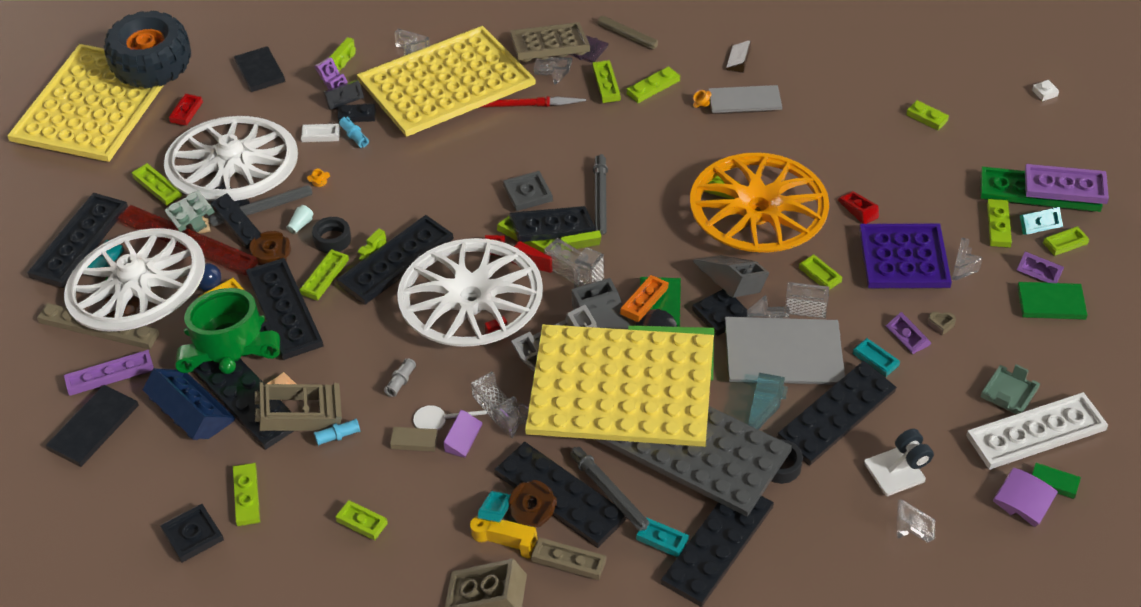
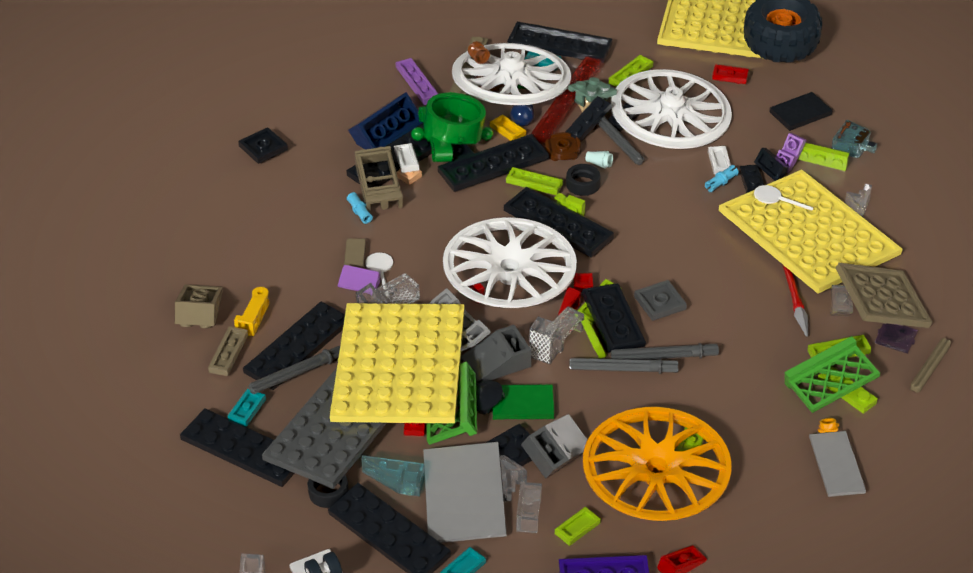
camera: 85 degrees right, 5 degrees down
(92, 425) = (367, 83): black tile -> none
(101, 295) = (478, 52): none -> dark orange wheel
(246, 494) = (300, 169): lime plate -> none
(252, 380) = (406, 158): none -> white tile
(318, 37) = (853, 140): none -> clear light blue torso
(318, 177) = (657, 164): light orange plate -> none
(361, 520) = (271, 230): lime plate -> none
(397, 97) = (771, 195): none -> white piece
(400, 377) = (418, 237): light grey pin -> none
(494, 506) = (278, 301): teal tile -> none
(545, 503) = (281, 323): reddish brown plate -> none
(619, 199) = (624, 365): none -> dark grey axle
(633, 89) = (819, 363): none -> bright green fence
(644, 298) = (513, 380): orange plate -> none
(739, 57) = (912, 461): slope -> none

